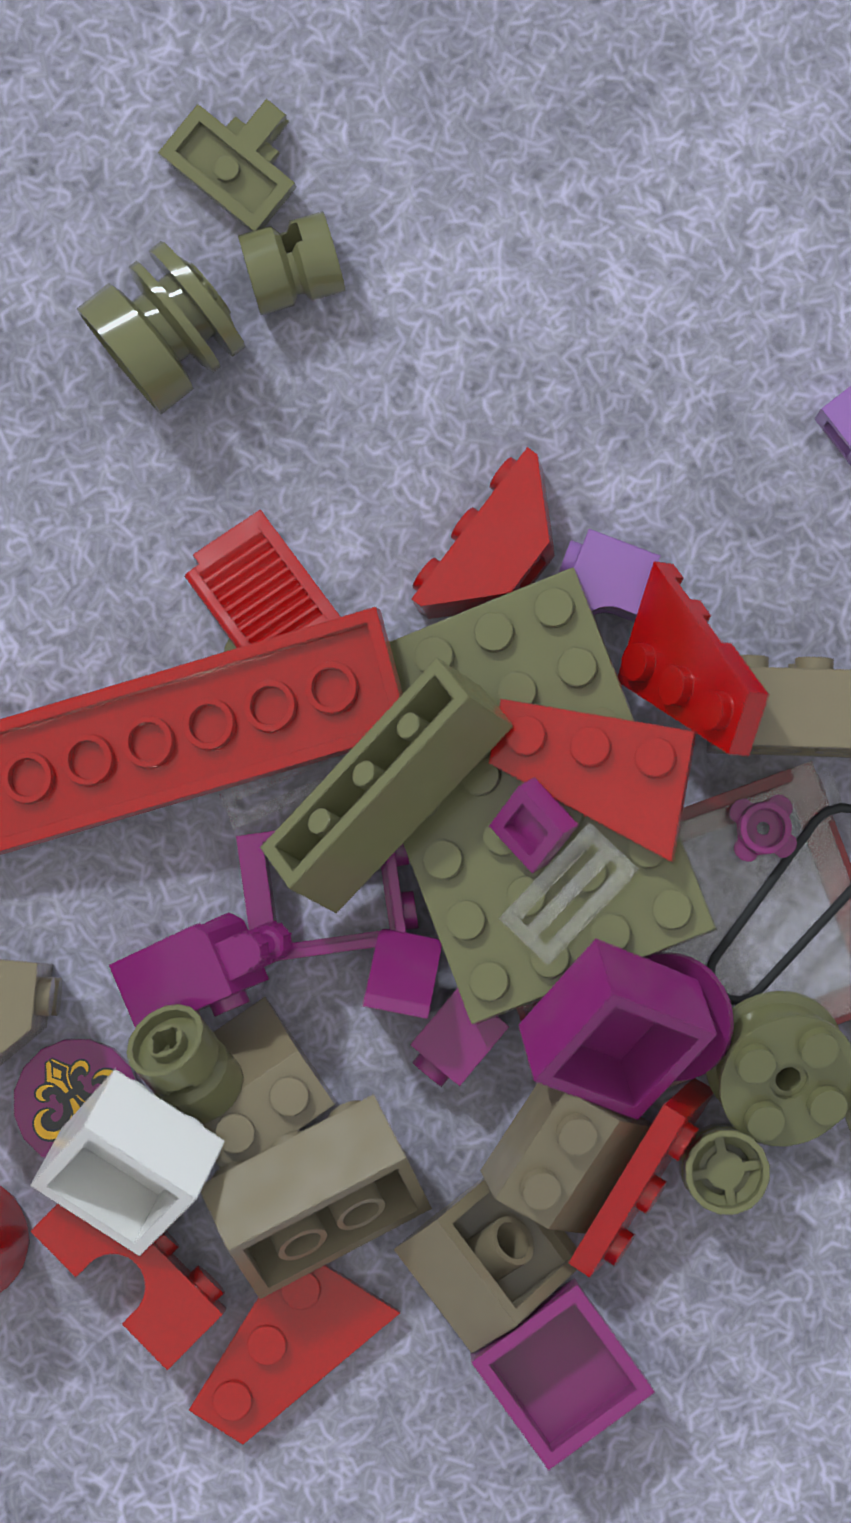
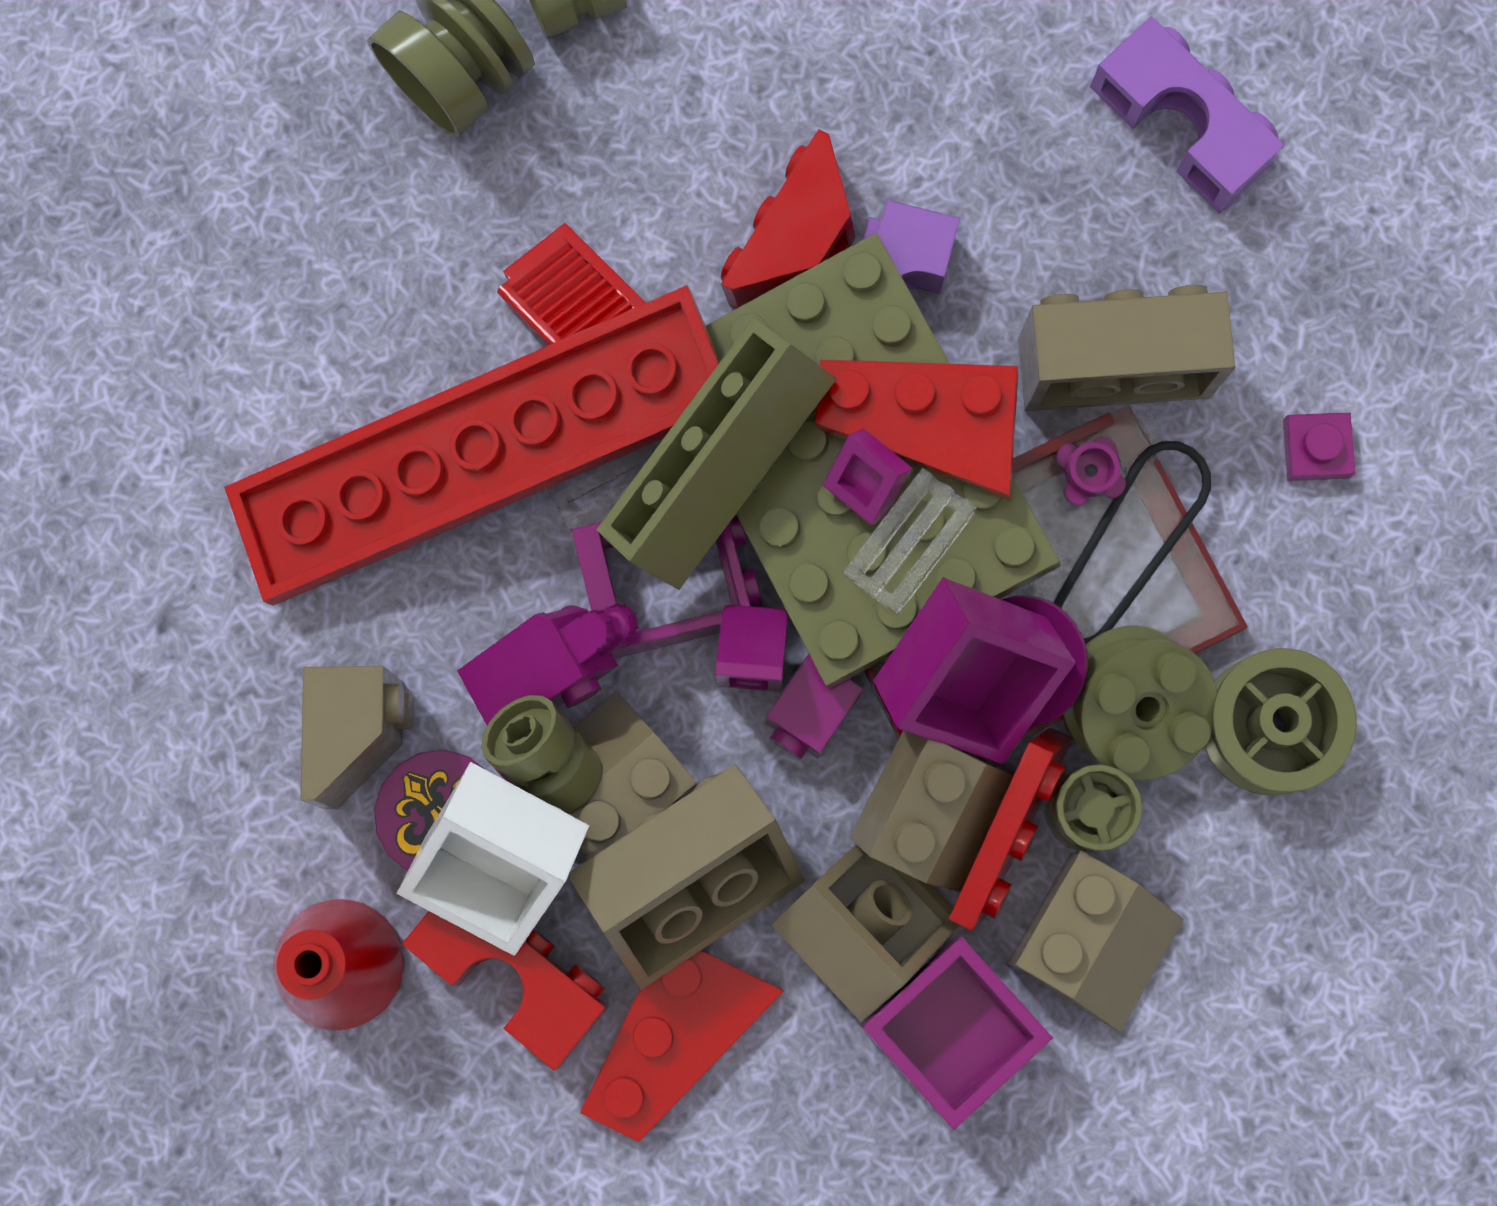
camera: 10 degrees left, 5 degrees down
(687, 669) = (1003, 313): red wing -> none
(712, 1296) = (1096, 939): none -> dark tan slope

